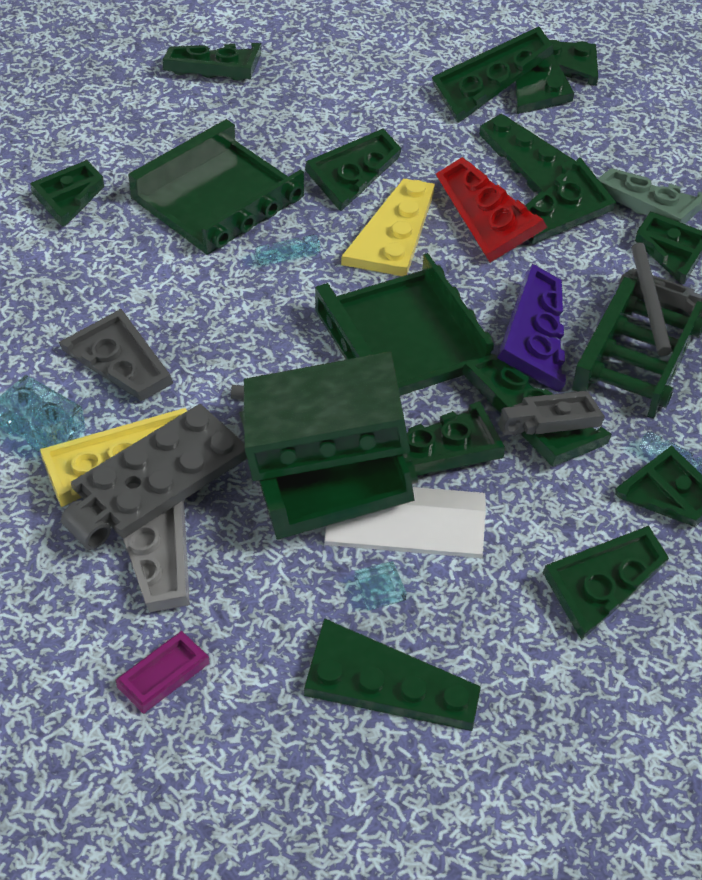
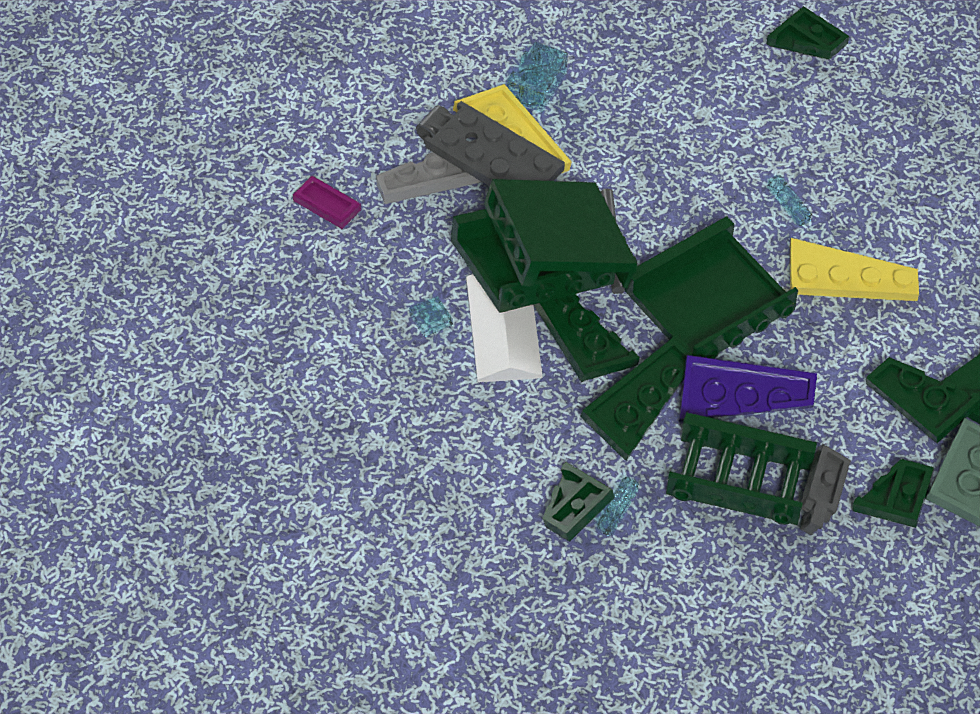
camera: 80 degrees right, 5 degrees up
(119, 355) = (623, 111): dark grey wing -> none
(213, 188) = (853, 134): dark green panel -> none
(353, 167) = (920, 228): dark green wing -> none
(379, 678) = (345, 330): dark green wing -> none
(488, 210) = (888, 336): red wing -> none
(551, 414) = (622, 399): dark grey hinge -> none
(604, 577) = (469, 459): dark green wing -> none
(651, 299) = (792, 464): dark grey bar -> none

